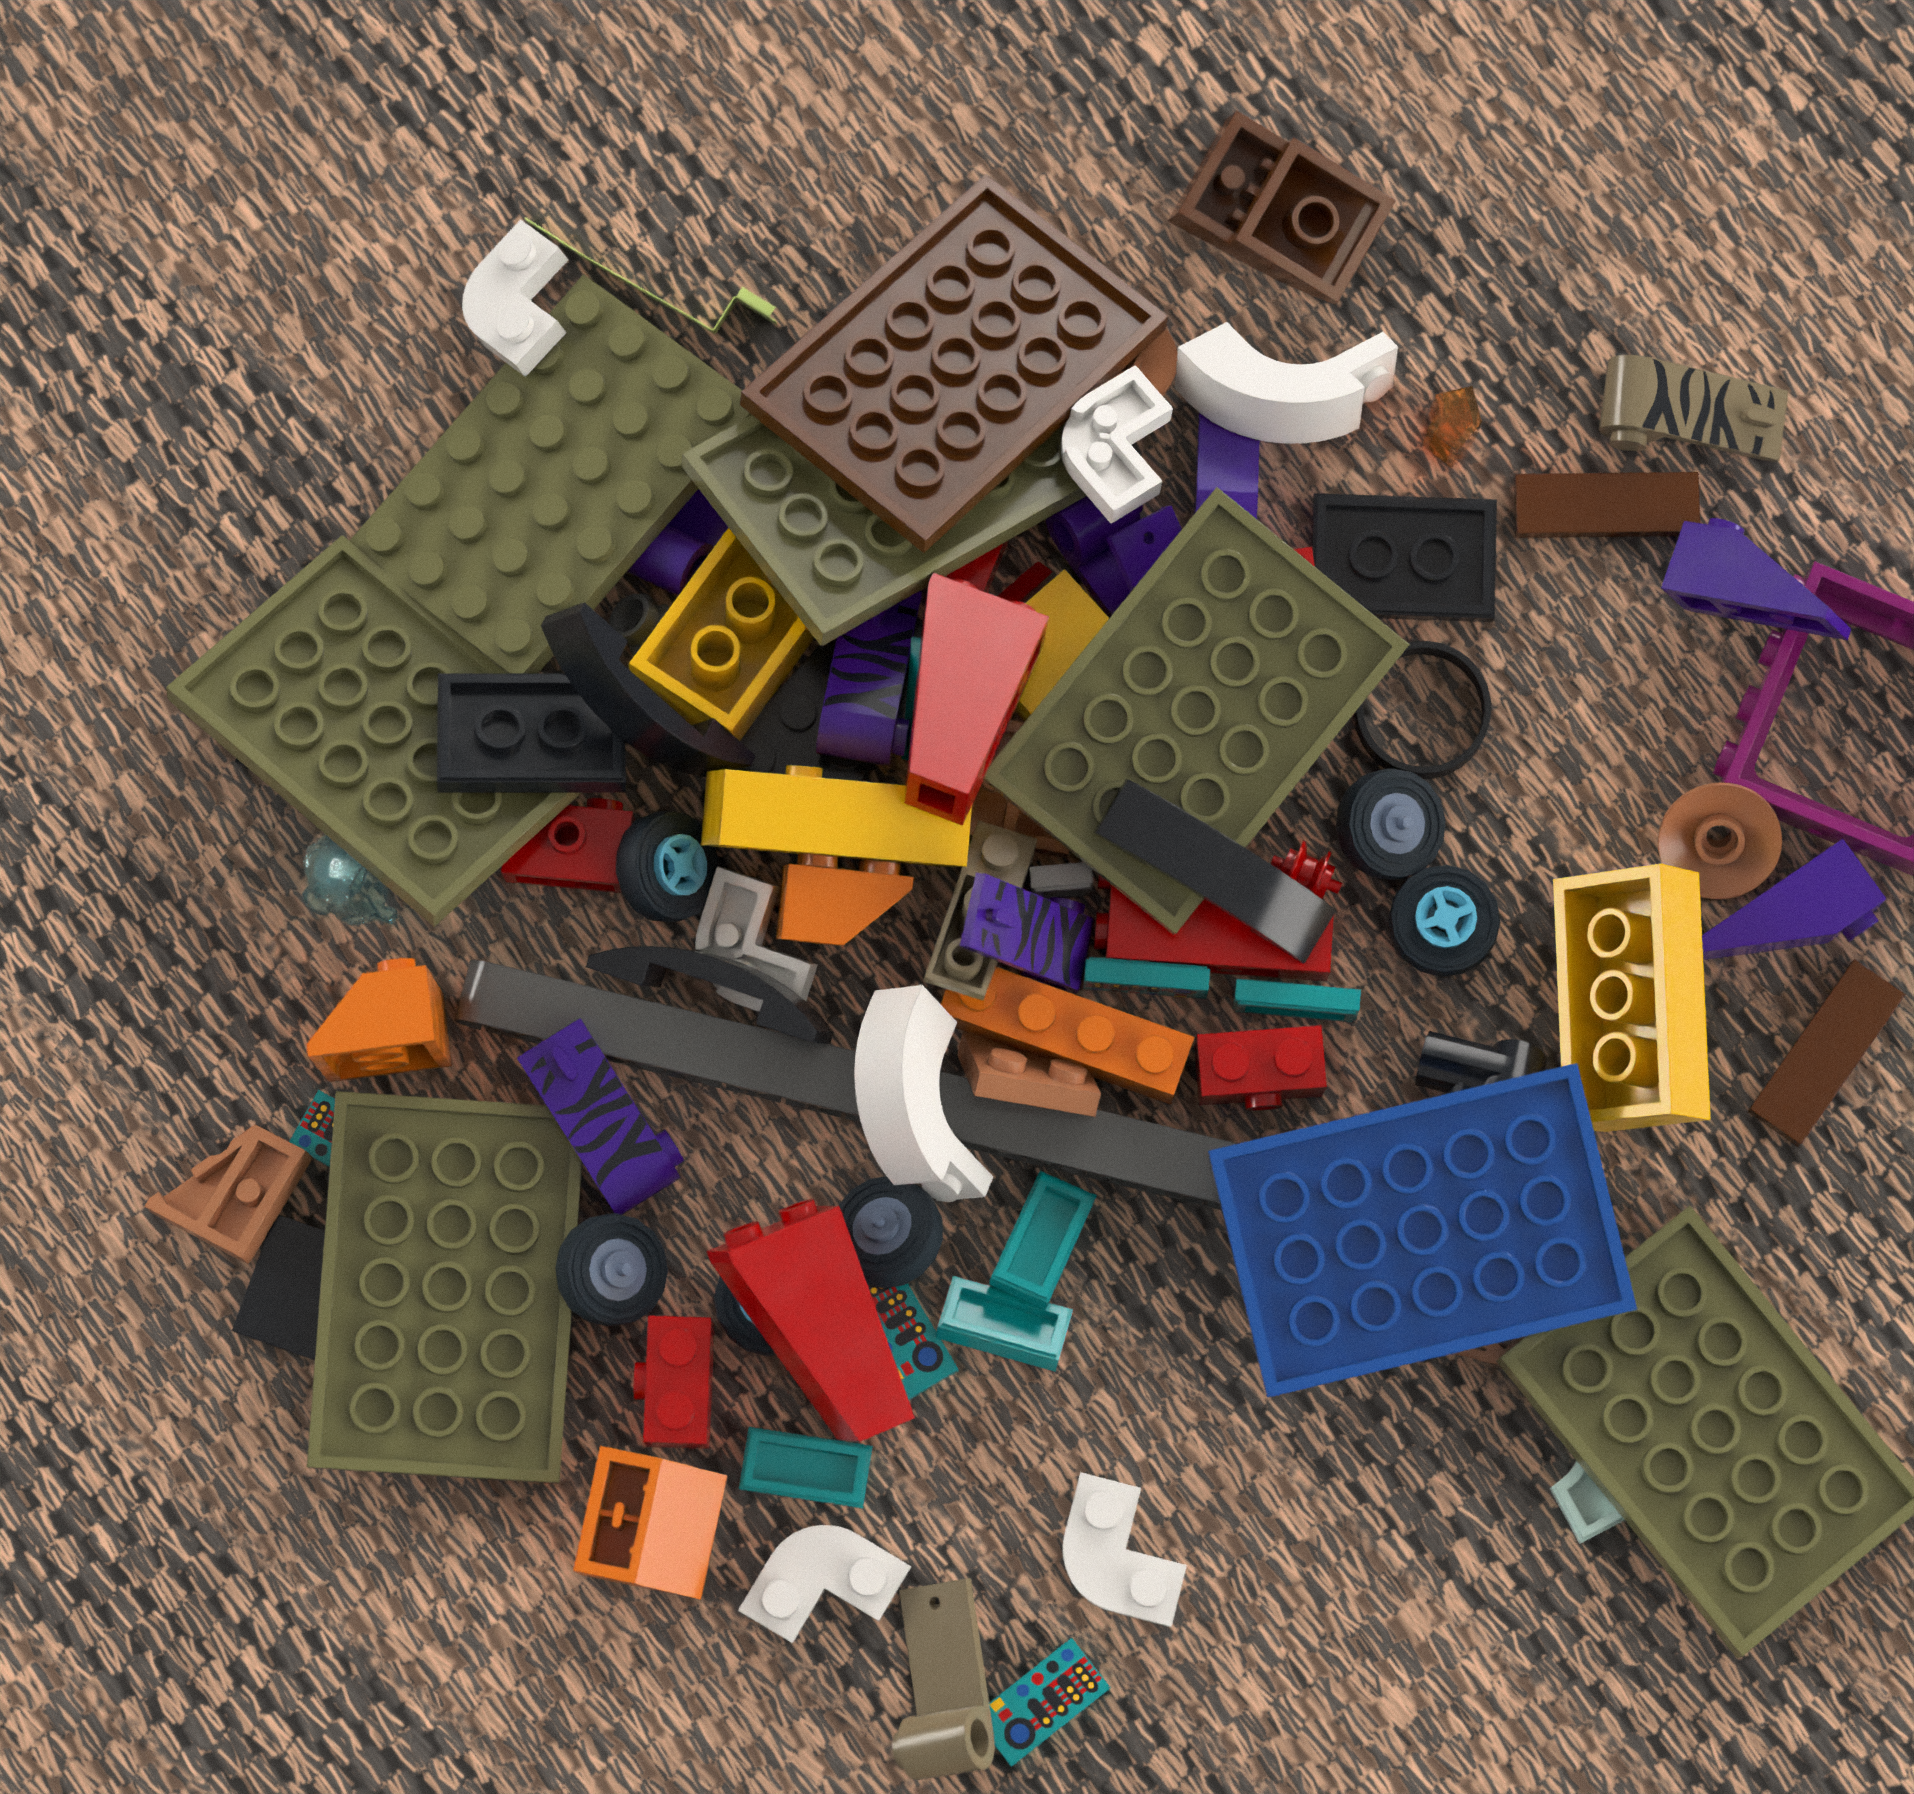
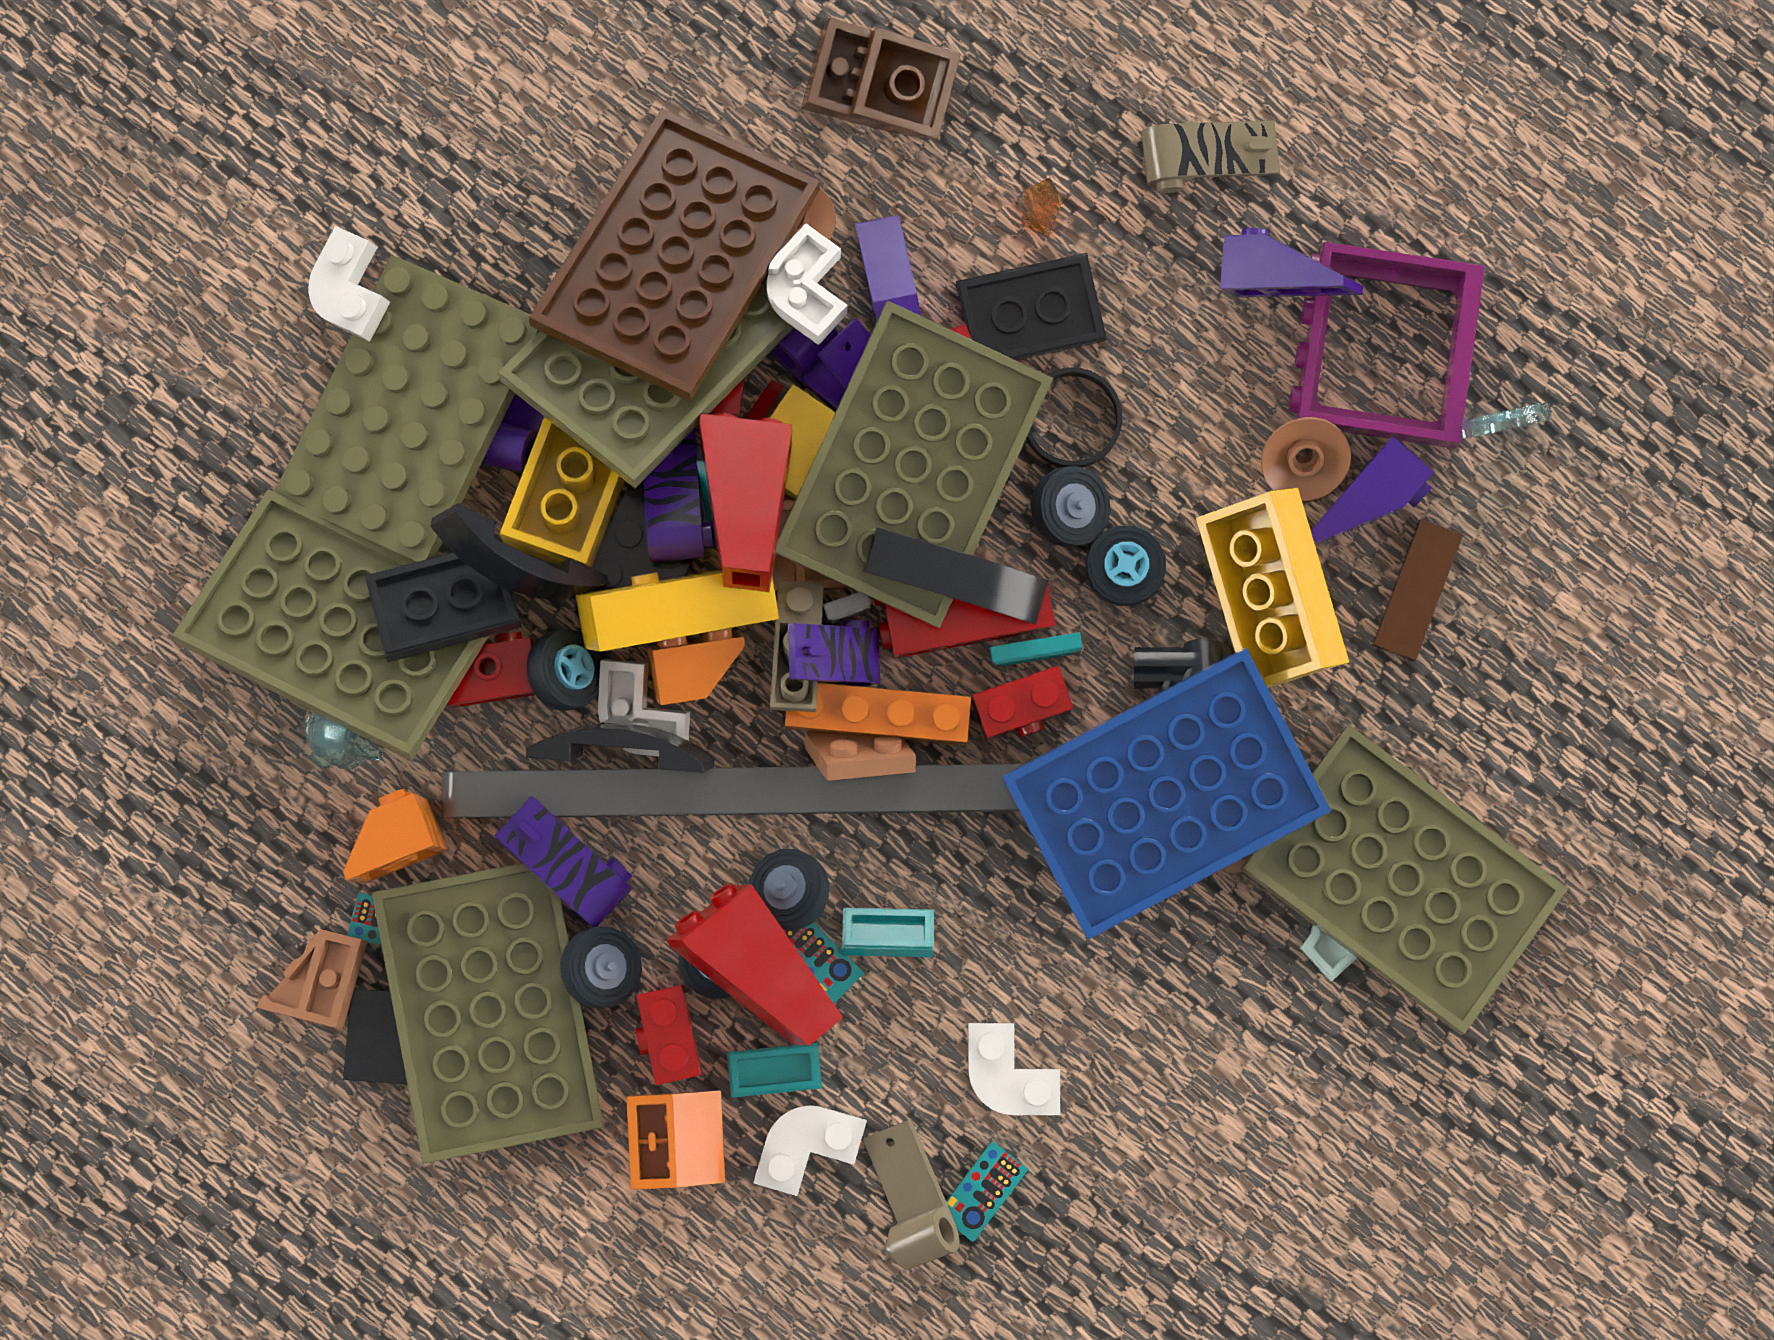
camera: 20 degrees left, 5 degrees up
(636, 619) = (496, 497): dark grey plate -> none
(744, 296) = (511, 241): yellowish green piece -> none
(900, 1095) = (773, 793): white arch -> none
(1042, 1240) = (900, 866): teal tile -> none
(1146, 977) = (925, 661): teal tile -> none
(1278, 399) = (913, 221): white arch -> none
(1309, 871) = (1019, 556): red wheel -> none
(1605, 504) = (1164, 236): reddish brown tile -> none

